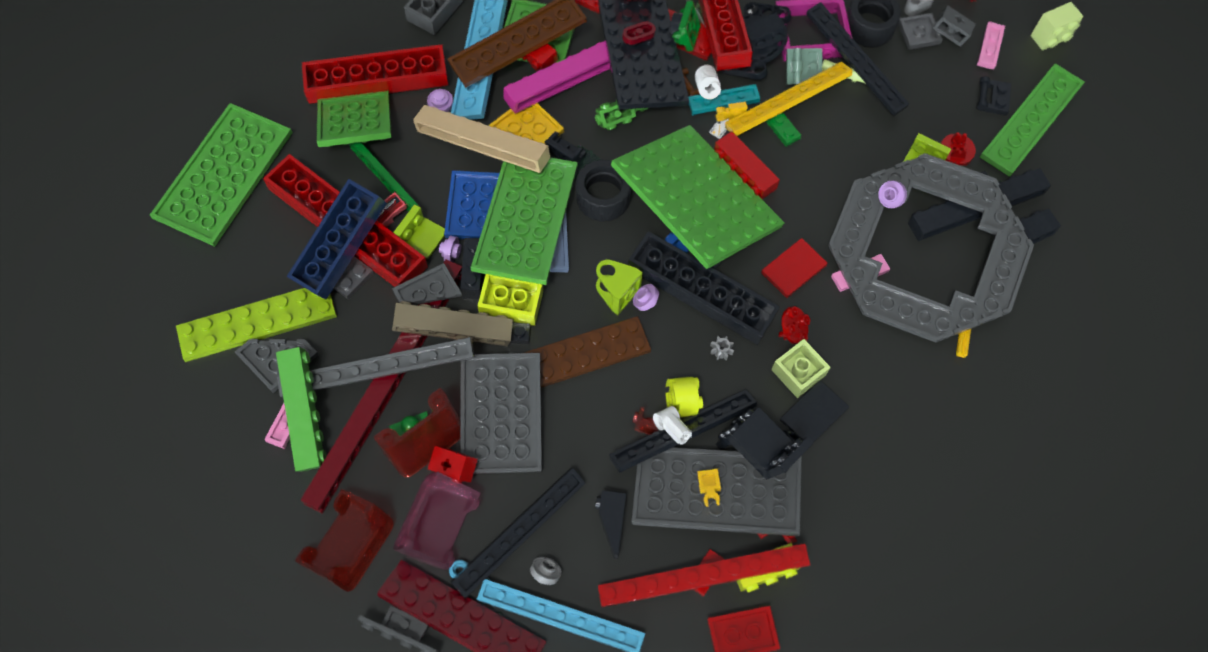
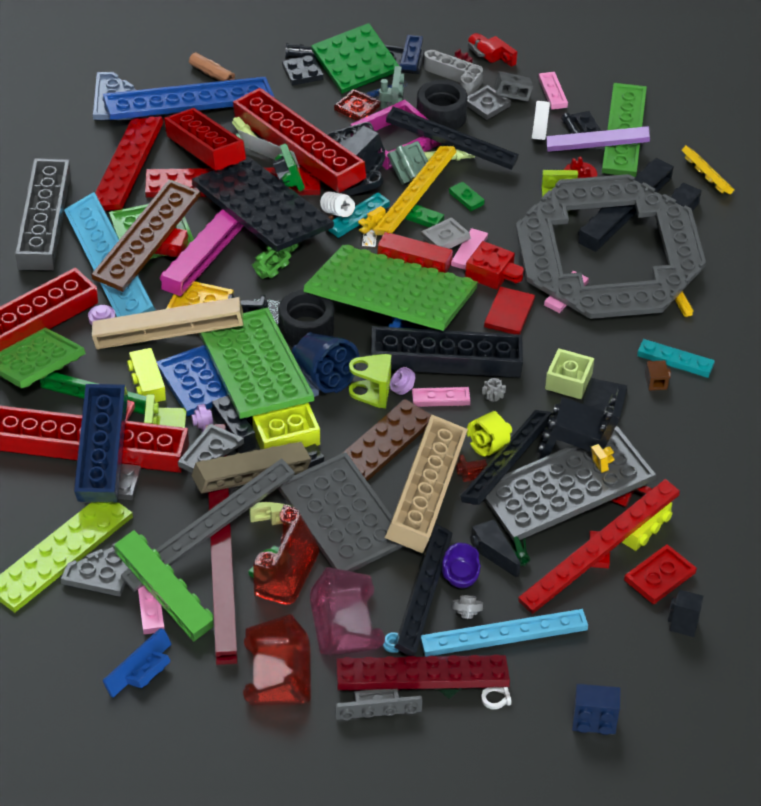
camera: 30 degrees left, 20 degrees down
(240, 475) = (140, 665): none -> blue bracket
(435, 181) = (146, 374): none -> neon yellow brick
(447, 378) = (266, 511): none -> yellowish green slope
(452, 464) = (335, 558): red brick -> none
(565, 527) = (461, 565): none -> dark purple piece
(587, 244) = (326, 361): none -> dark blue cone
(589, 423) = (426, 484): none -> tan brick
(630, 538) = (521, 552): none -> dark green piece
(638, 33) = (253, 187): dark red plate -> none
(670, 421) = (494, 450): white piece -> none
(672, 329) = (441, 396): none -> bright pink tile
(709, 484) = (559, 476): yellow plate -> none
(761, 486) = (602, 457): none -> yellow tile
(787, 158) = (446, 234): none -> light grey plate
(794, 325) = (542, 346): red plate -> none
(801, 183) = (468, 247): none -> bright pink tile
(807, 213) = (493, 265): none -> red brick
(835, 124) = (466, 196): none -> green plate
(885, 410) = (657, 375): none -> reddish brown brick
(892, 194) = (555, 216): lavender plate -> none
(917, 398) = (676, 358): none -> teal plate
(957, 74) = (540, 120): none -> white sticker
(998, 120) = (598, 139): none -> tile
(1057, 26) = (597, 54): yellowish green brick -> none
(1085, 204) = (711, 174): none -> yellow plate

